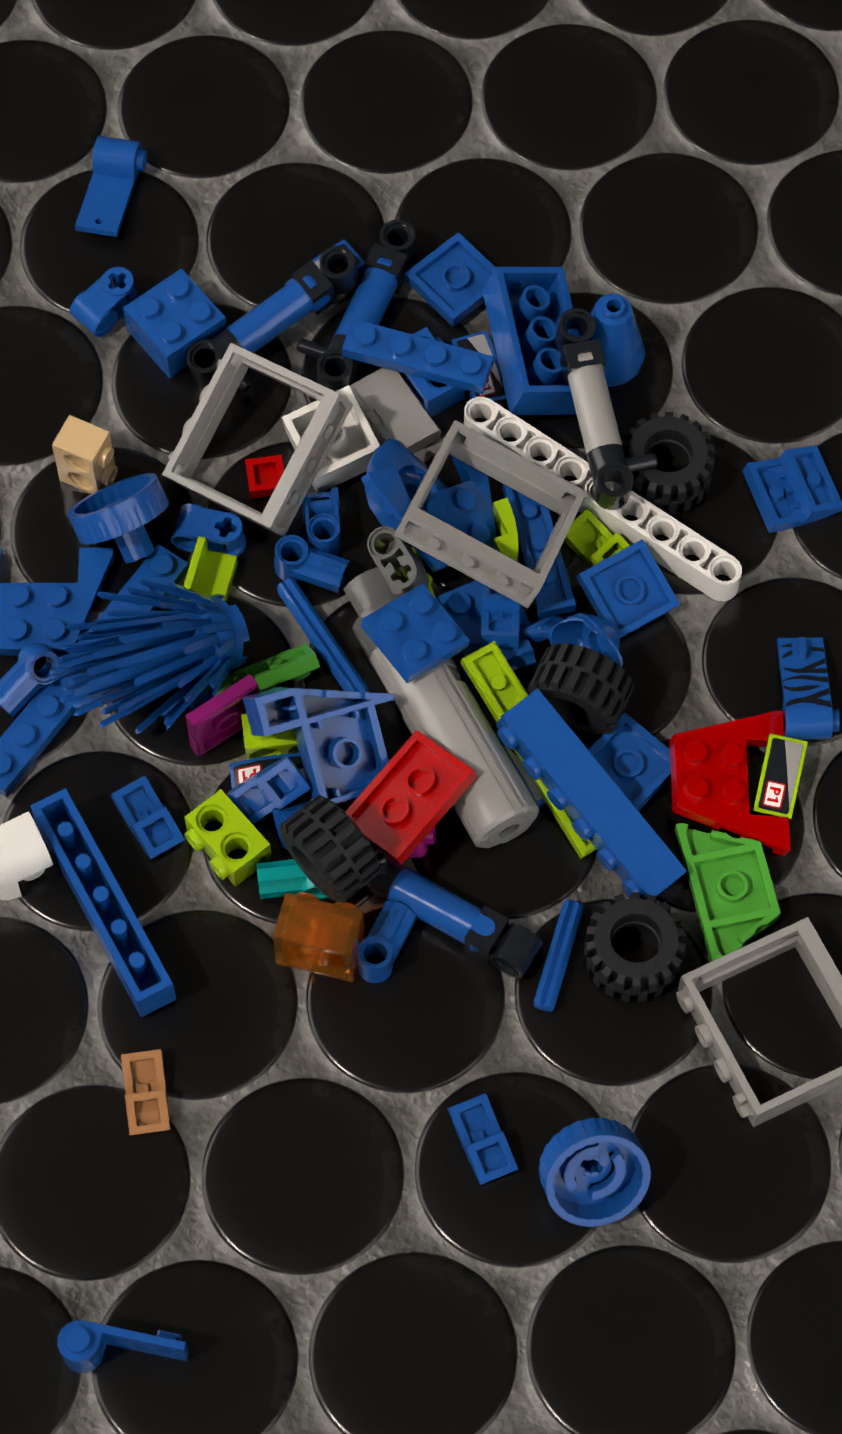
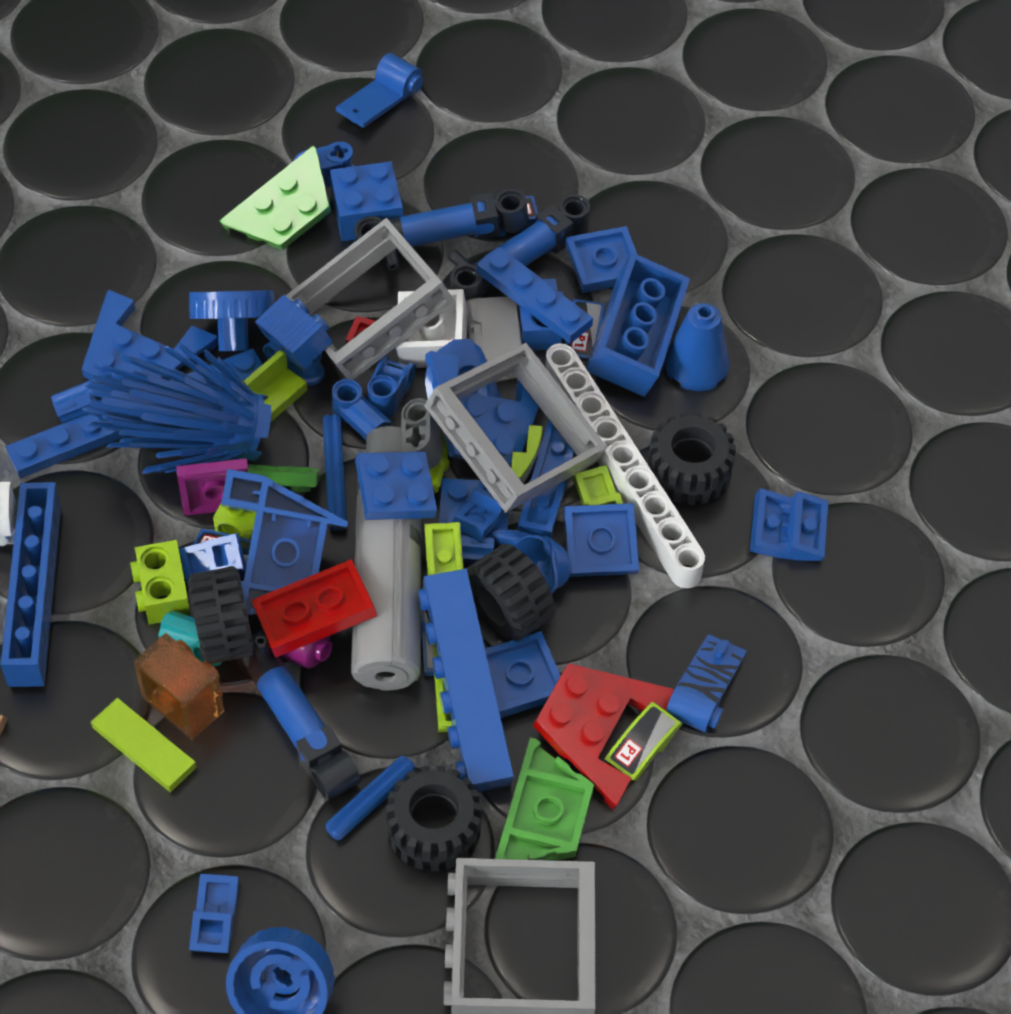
camera: 25 degrees right, 10 degrees down
(84, 455) = (233, 258): tan brick -> none
(93, 366) = (284, 205): none -> wing
(147, 817) = (113, 539): blue slope -> none
(206, 510) = (294, 330): none -> blue brick
(311, 1010) = (143, 745): none -> lime tile
(385, 940) = (234, 717): blue piece -> none
(583, 369) = (647, 389): black piece -> none

